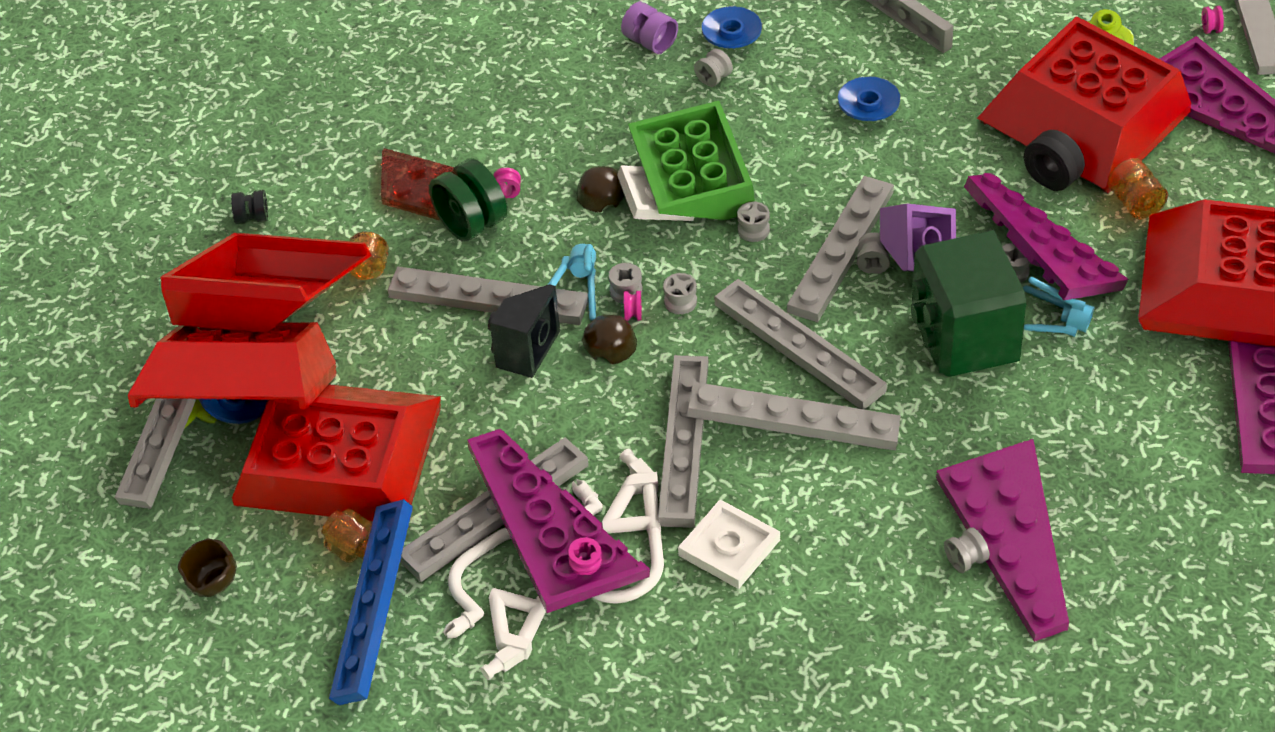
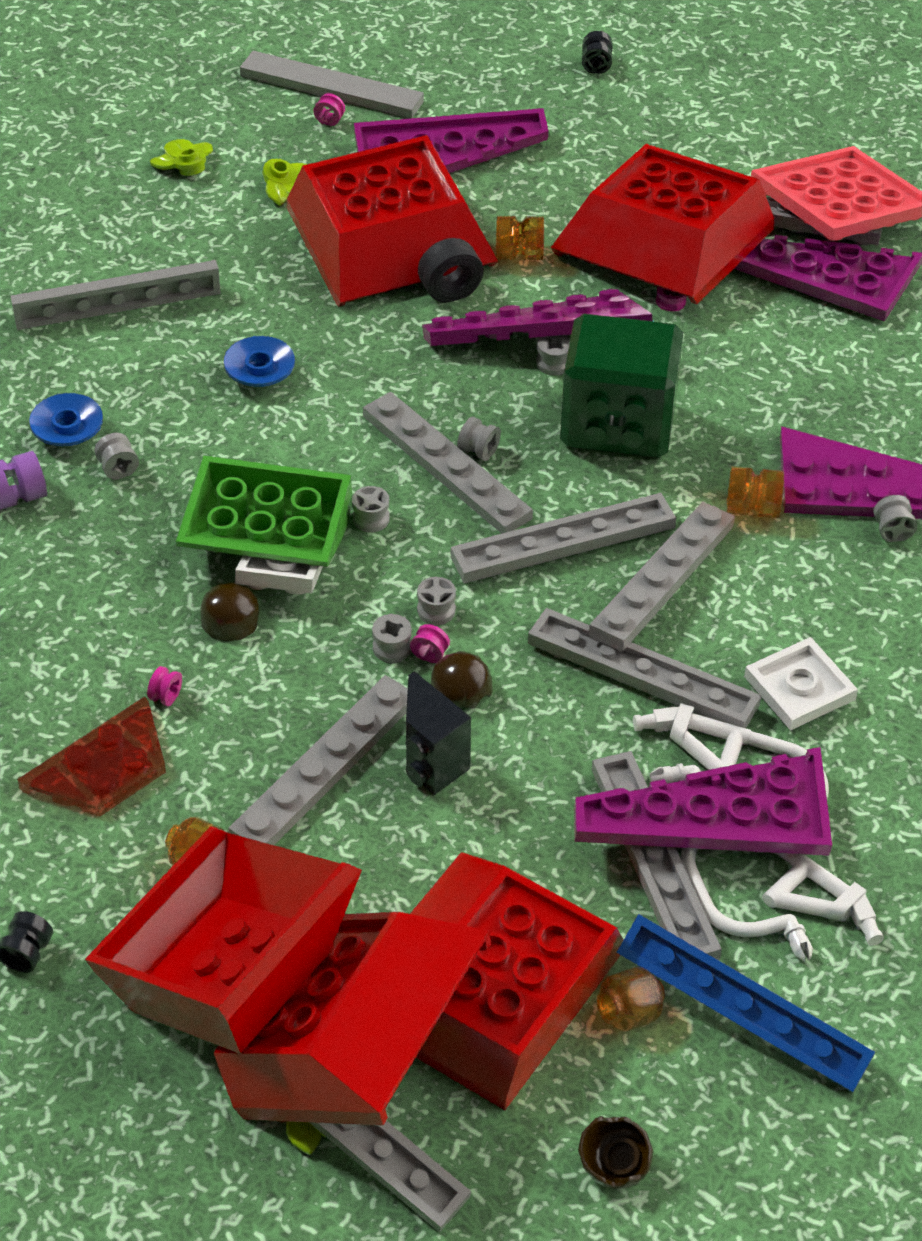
camera: 70 degrees left, 0 degrees up
(468, 199) = (190, 717): dark green wheel -> none
(581, 264) = (339, 661): medium azure plant -> none
(584, 545) = (785, 796): dark pink bush -> none
(912, 225) = (492, 393): medium lavender slope -> none
(928, 442) = (755, 492): none -> clear orange wheel

